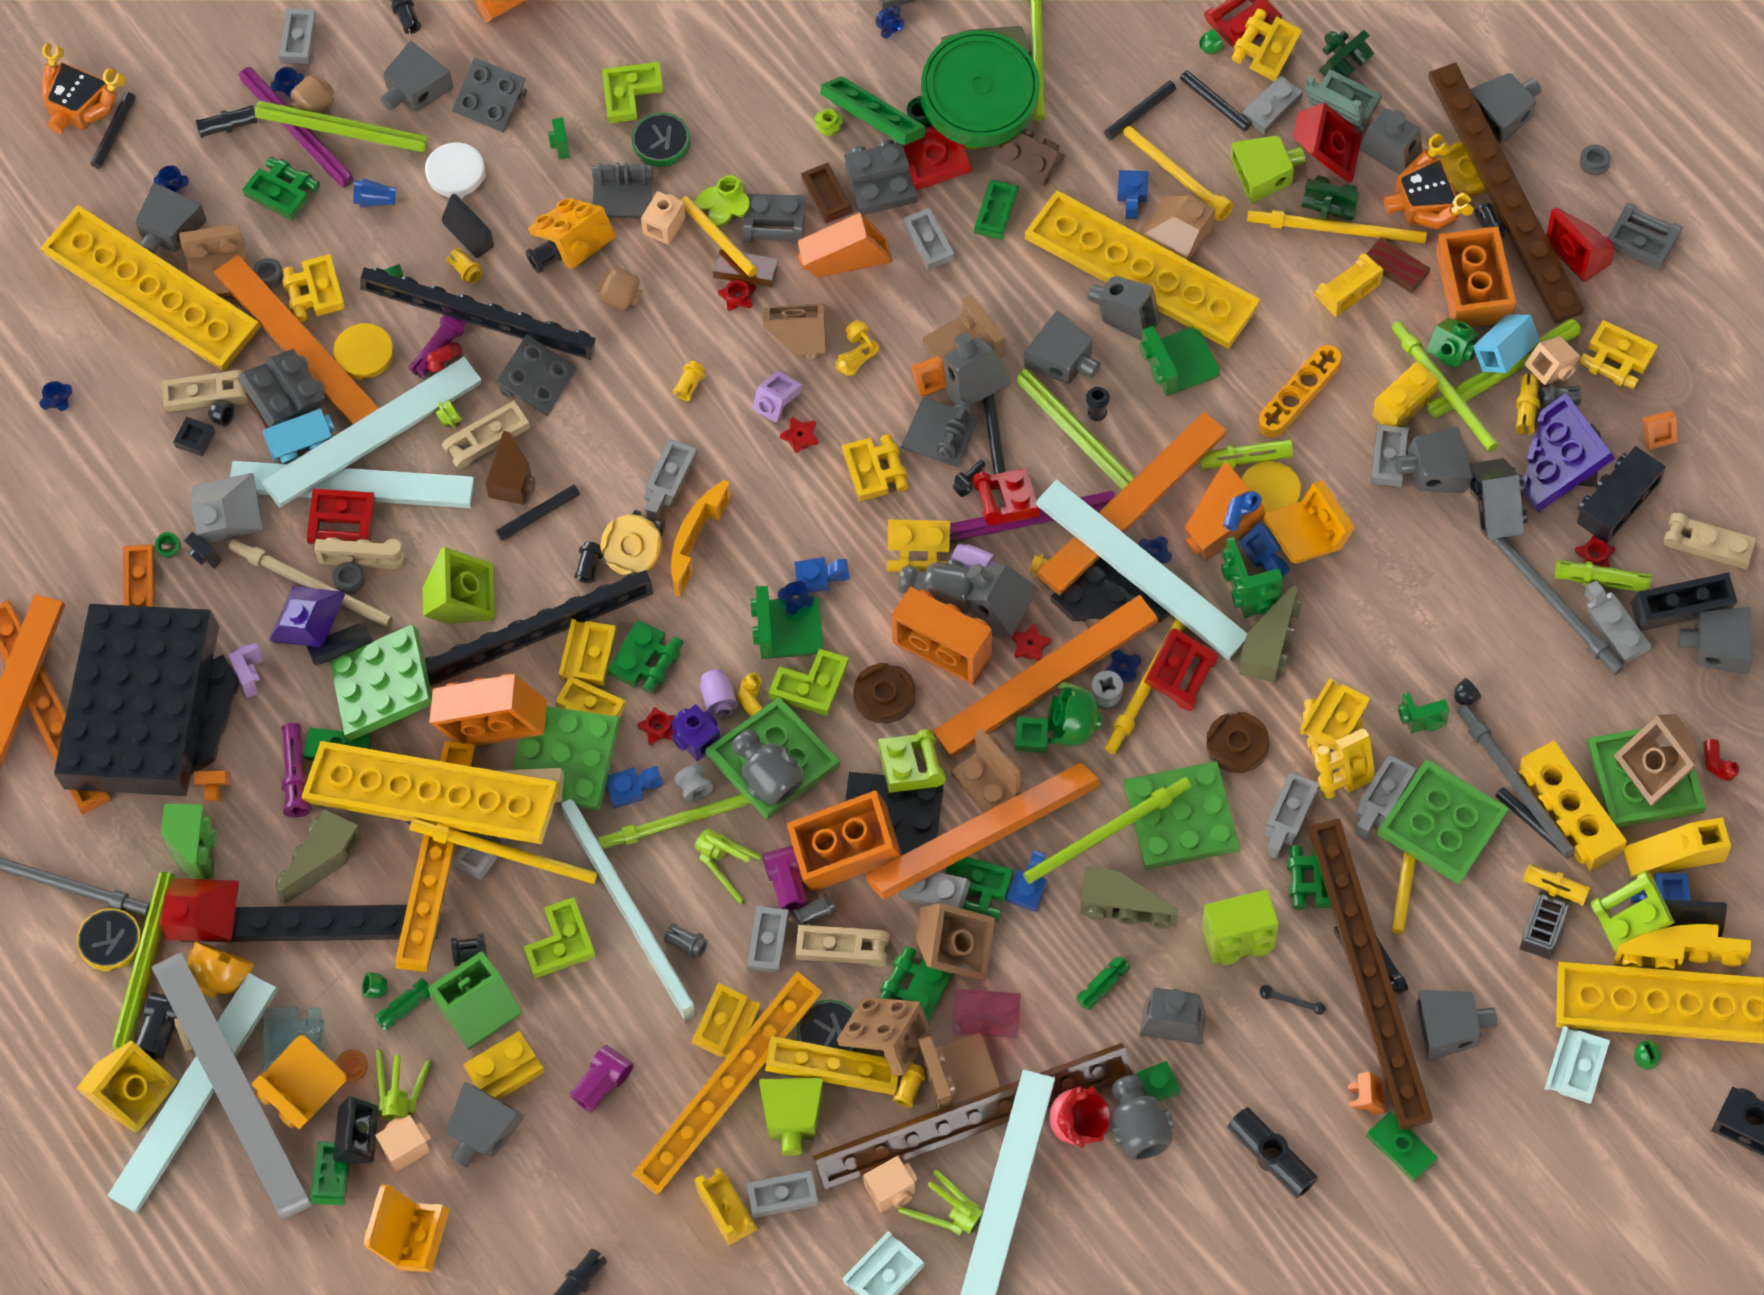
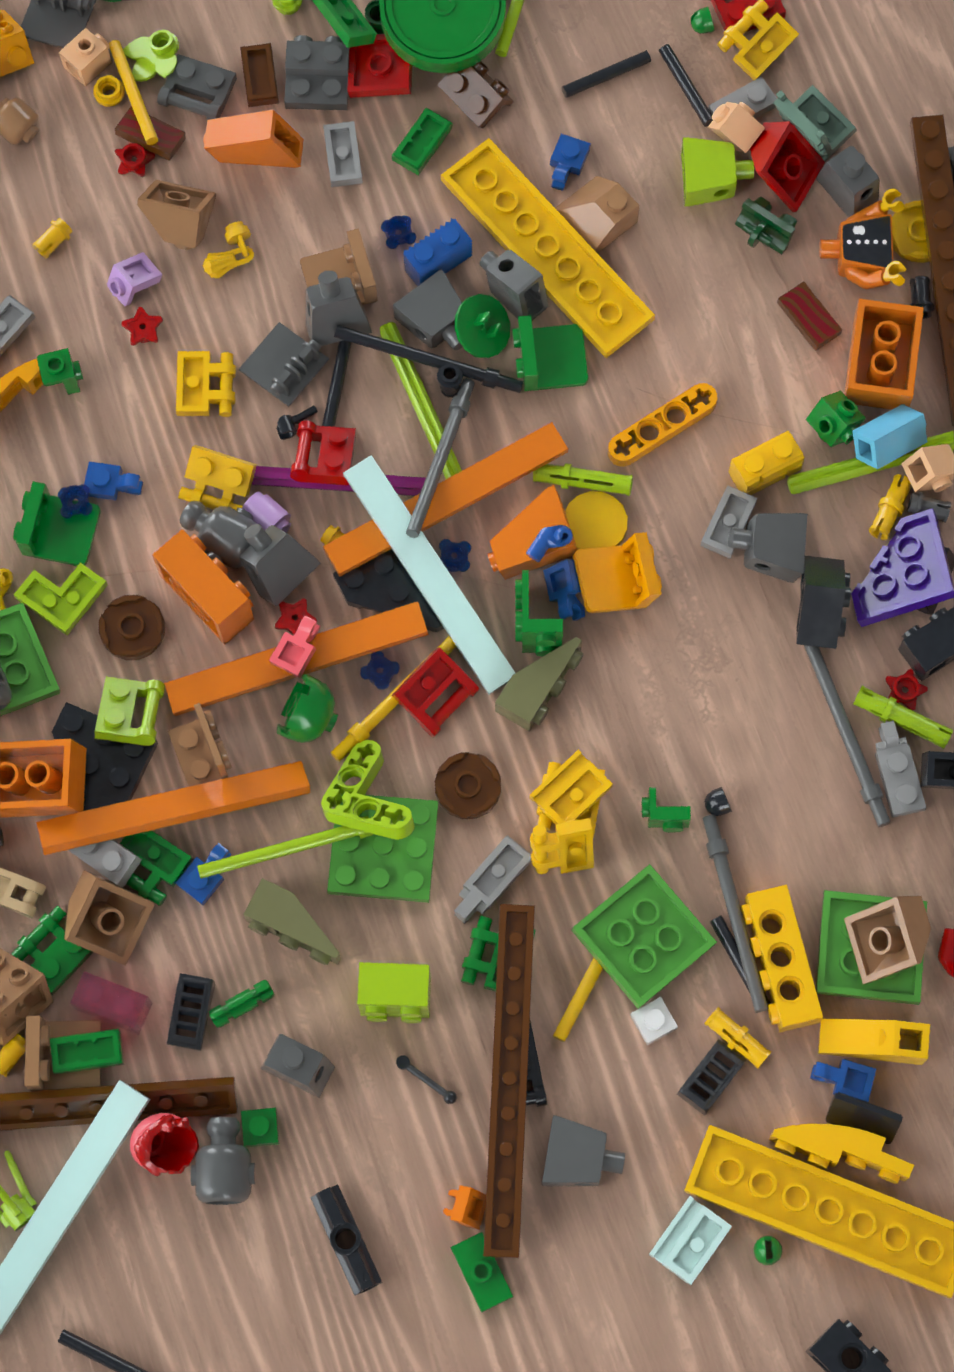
camera: 15 degrees right, 10 degrees up
(694, 235) = (108, 83): none -> yellow plate
(741, 487) = (59, 368): none -> green bracket
(929, 376) = (290, 301): orange tile -> none
(980, 1059) = (86, 1051): none -> green plate
(1002, 284) = (396, 223): none -> clear blue plate
(1031, 734) = (261, 716): green plate -> none
(1045, 666) = (295, 652): none -> coral plate
(1049, 294) = (439, 251): none -> blue brick
(1059, 975) = (185, 981): none -> black slope
(1109, 349) = (482, 326): none -> green piece
(1111, 696) = (357, 697): light grey wheel -> none
(1113, 426) = (458, 409): none -> dark grey bar
(1129, 392) = (488, 377): none -> black bar
(1192, 778) = (357, 802): none -> lime beam
(1222, 204) = (648, 199): yellow piece -> none
(1275, 119) = (736, 125): none -> light nougat brick
(1278, 219) = (704, 232): yellow bar -> none
(1350, 285) = (753, 325): yellow hinge -> none
(1357, 48) = (849, 68): dark green hips -> none
(1383, 794) = (594, 887): light grey hinge -> none
(1413, 347) = (795, 410): lime bar -> none
(1476, 892) = (654, 1020): none -> white plate
(1636, 920) = (808, 1105): lime plate -> none

